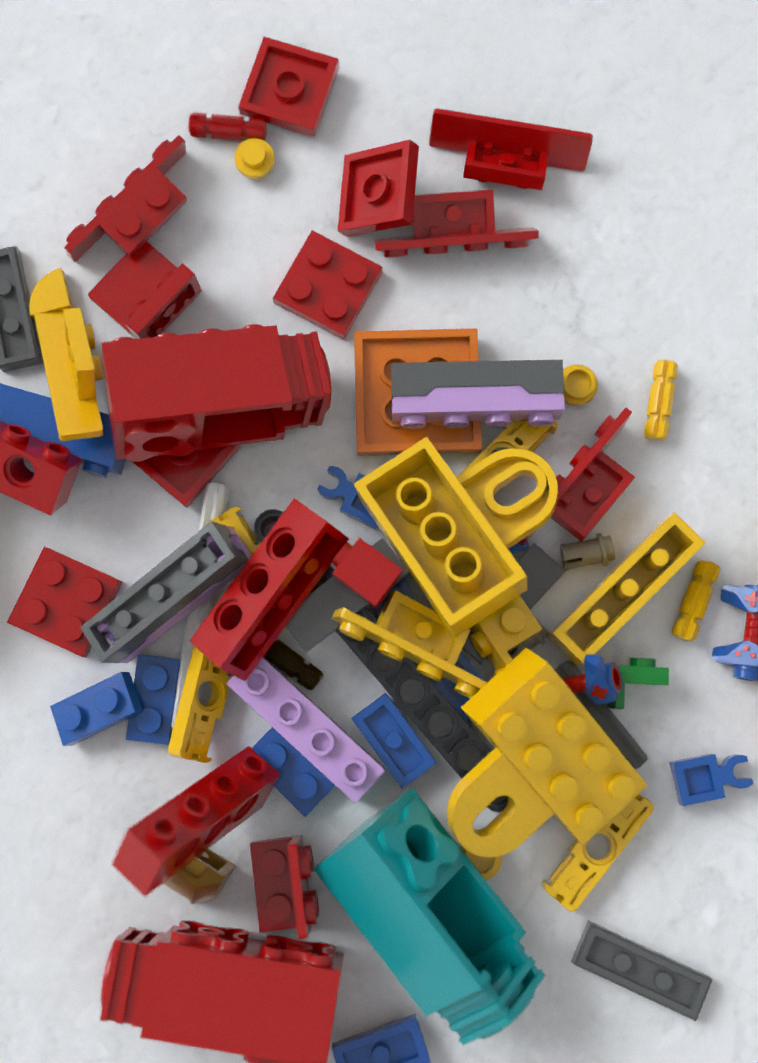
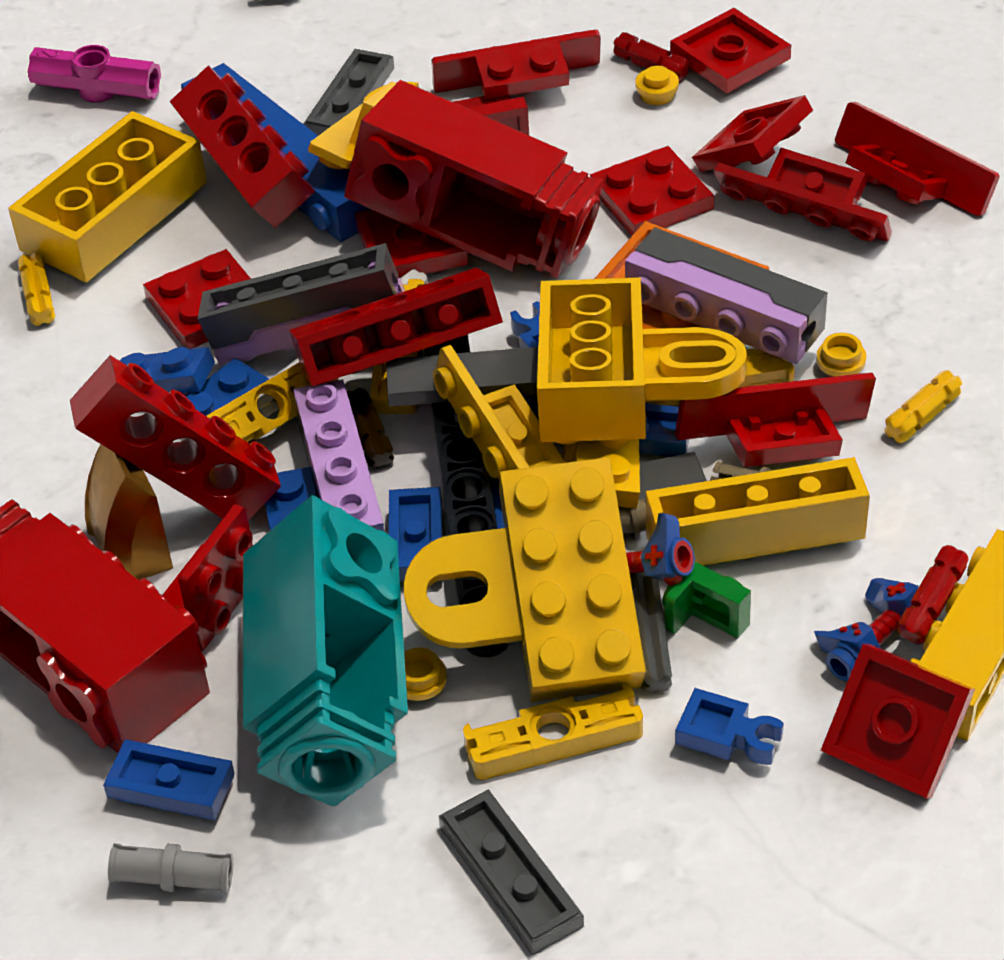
camera: 35 degrees right, 35 degrees down
(365, 571) = (497, 348): red brick -> none
(696, 600) = (834, 579): yellow axle -> none

